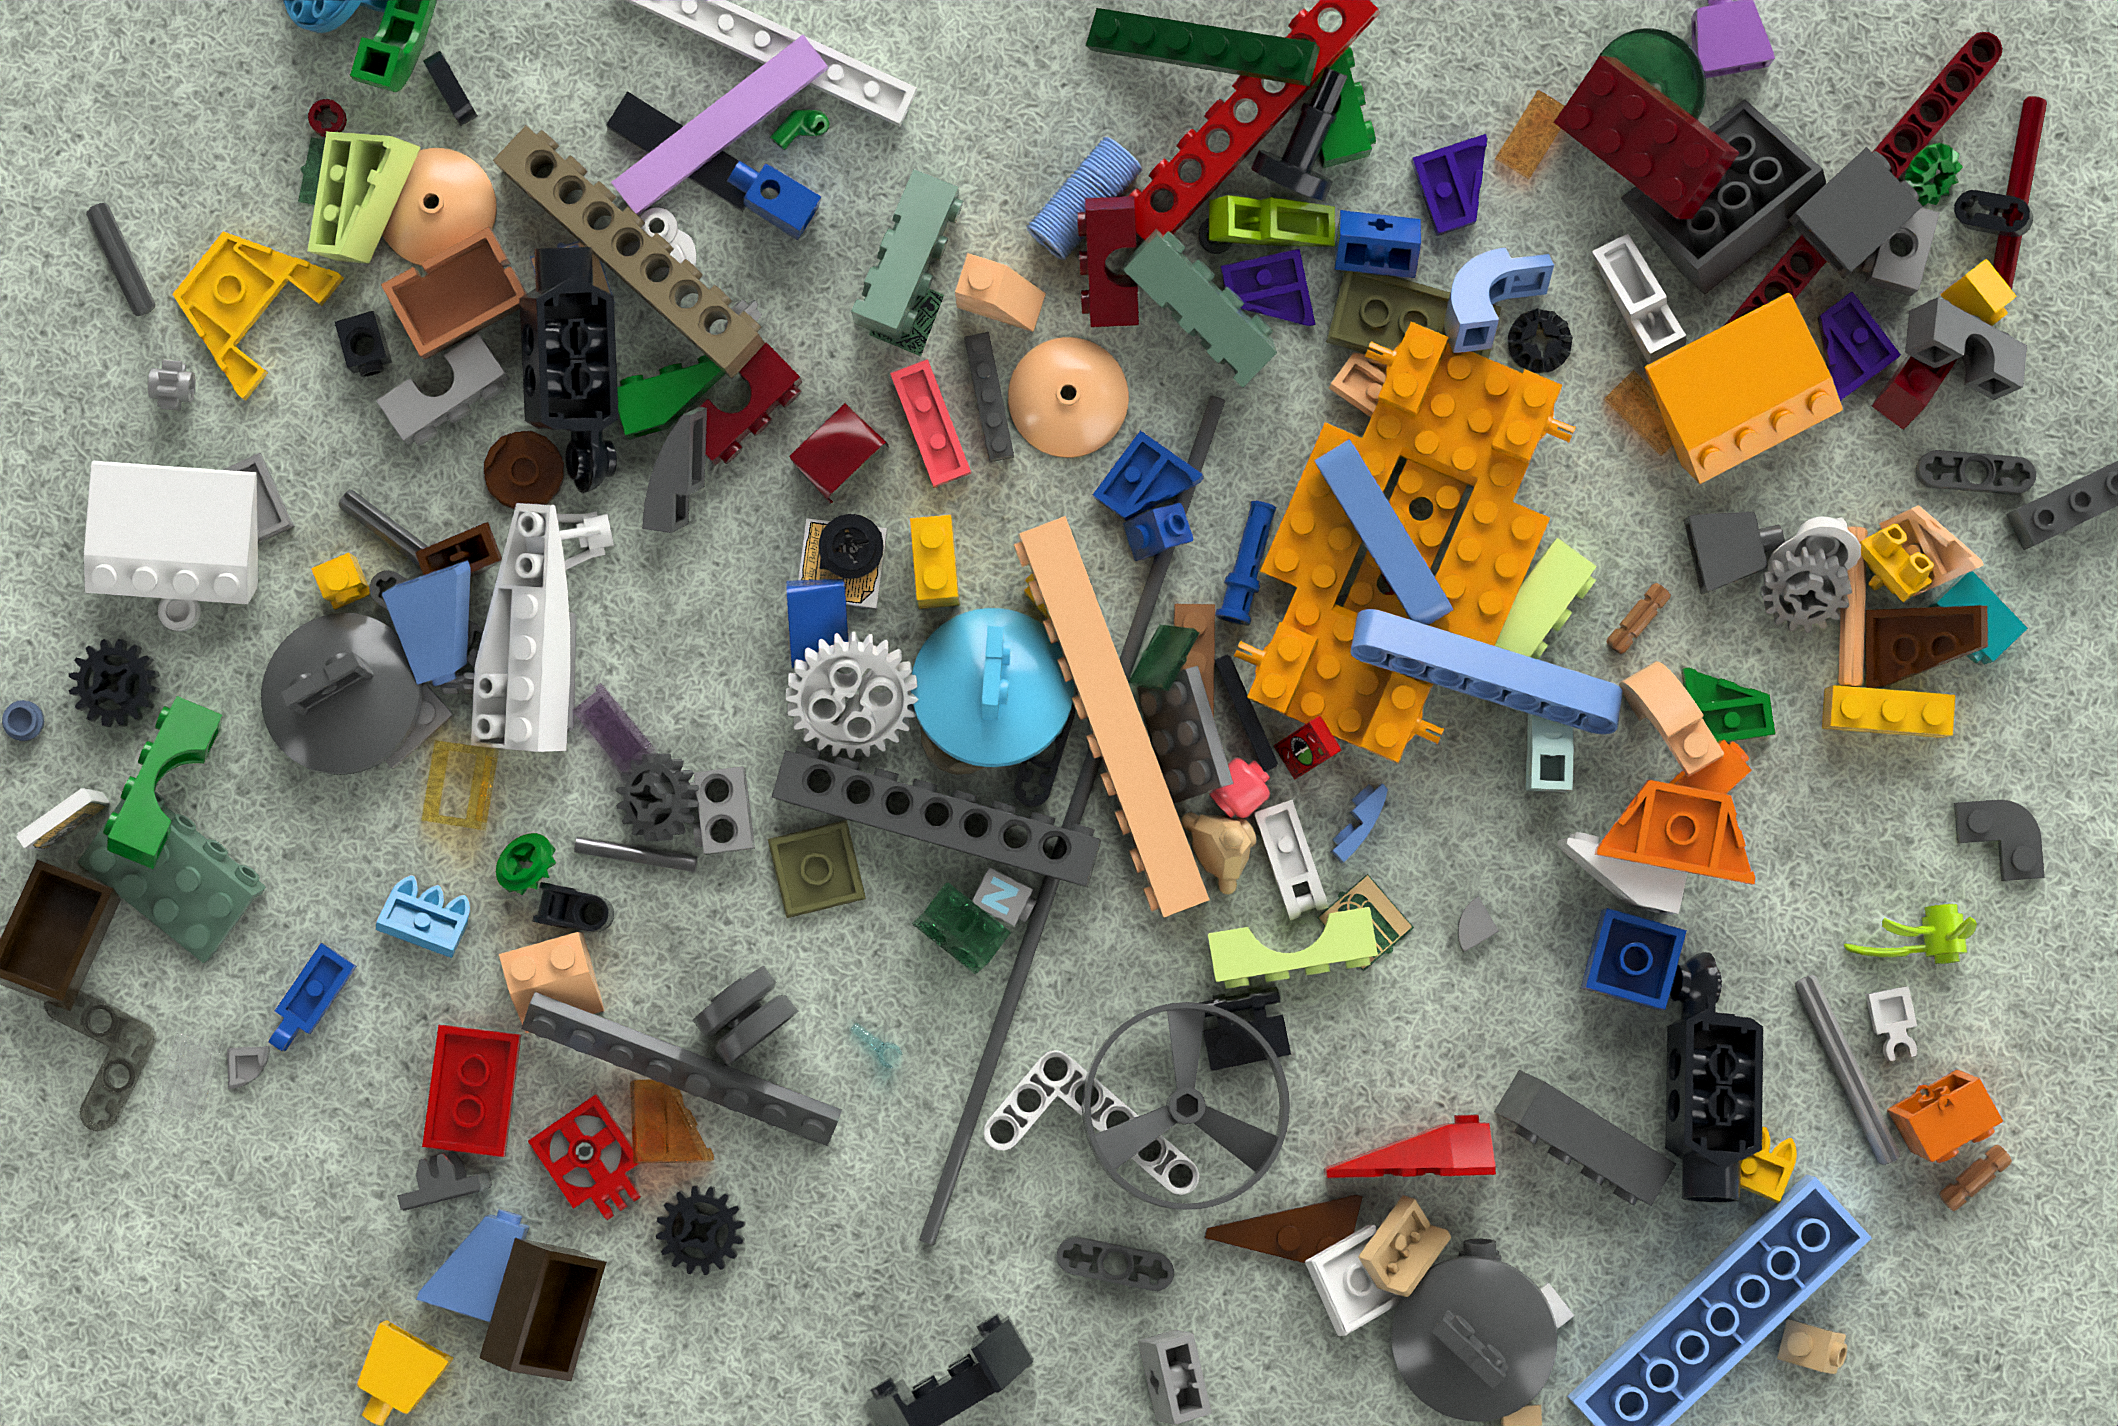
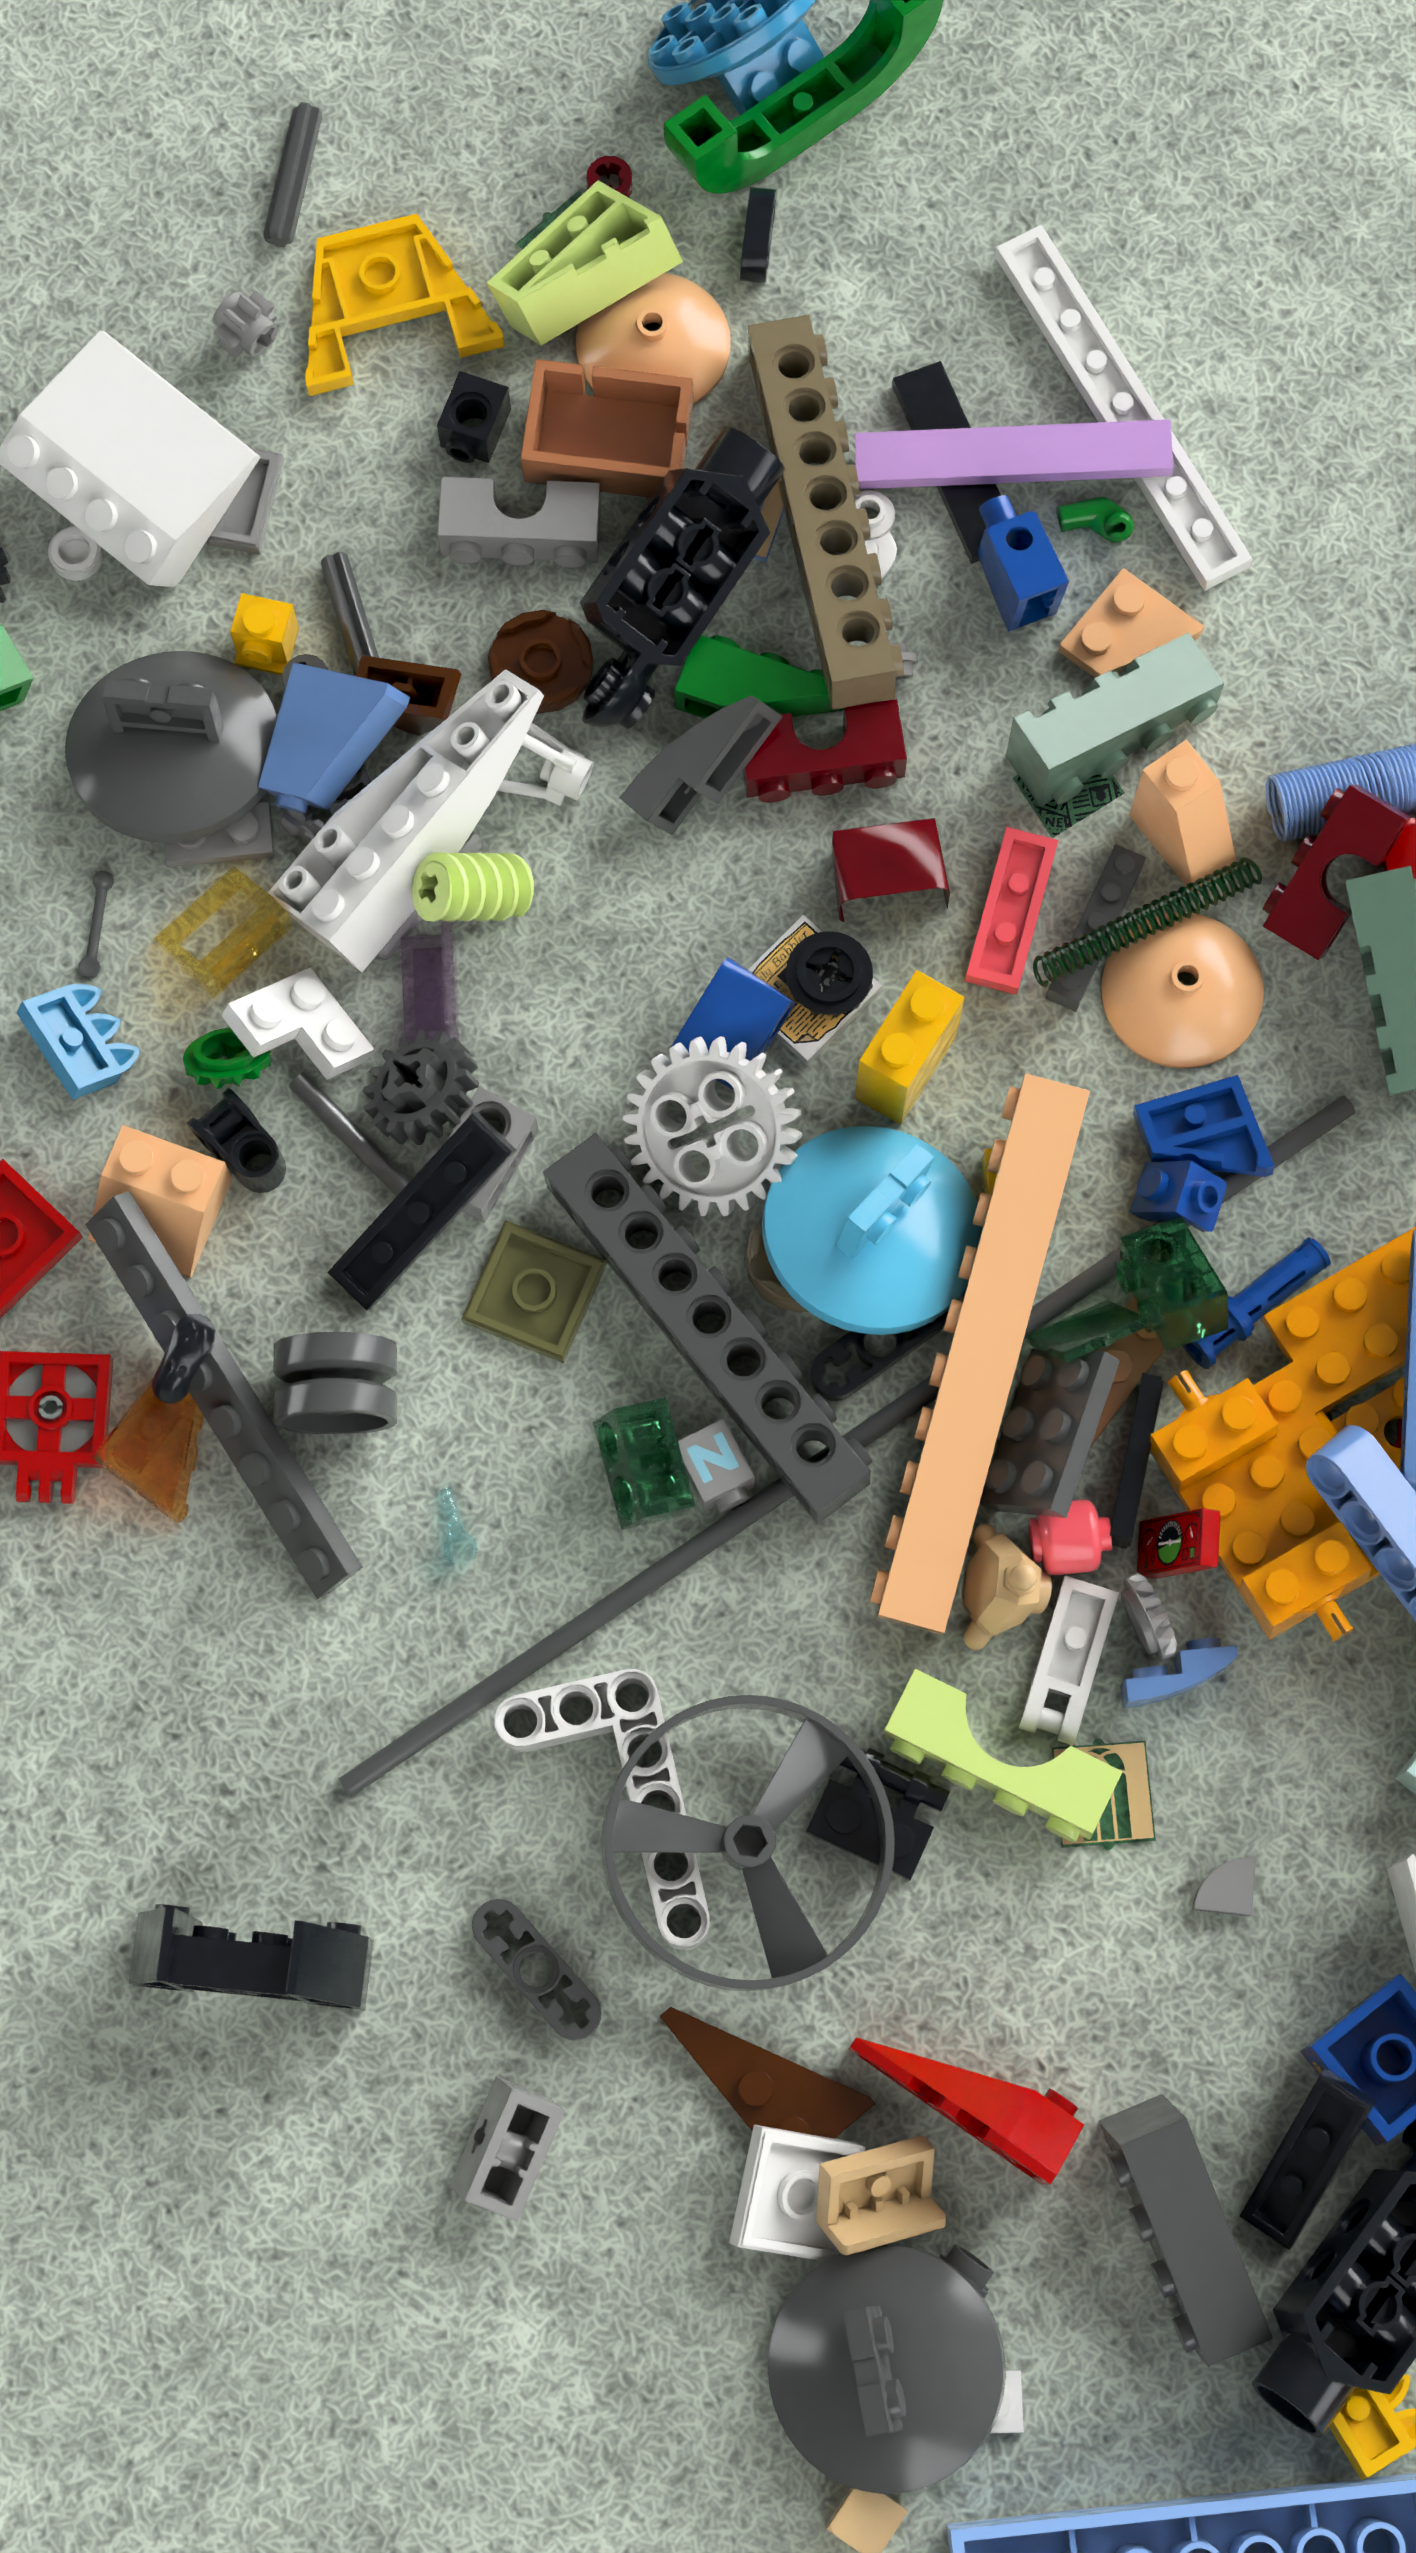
camera: 40 degrees right, 10 degrees down
(394, 865) = (89, 965): none -> dark grey hinge
(549, 801) = (301, 1011): none -> white plate
(595, 651) = (472, 887): none -> yellowish green piece
(646, 1068) = (187, 1348): none -> black piece
(710, 1247) = (110, 1560): black gear -> none
(717, 873) = (422, 1210): none -> black tile
(870, 186) = (1125, 625): none -> light nougat wing
(1045, 327) = (1142, 921): none -> dark green piece
(1197, 588) = (1172, 1283): none -> clear green brick
(1320, 802) = (1148, 1617): none -> light grey gear
(1626, 1049) = (1308, 2158): none -> black tile

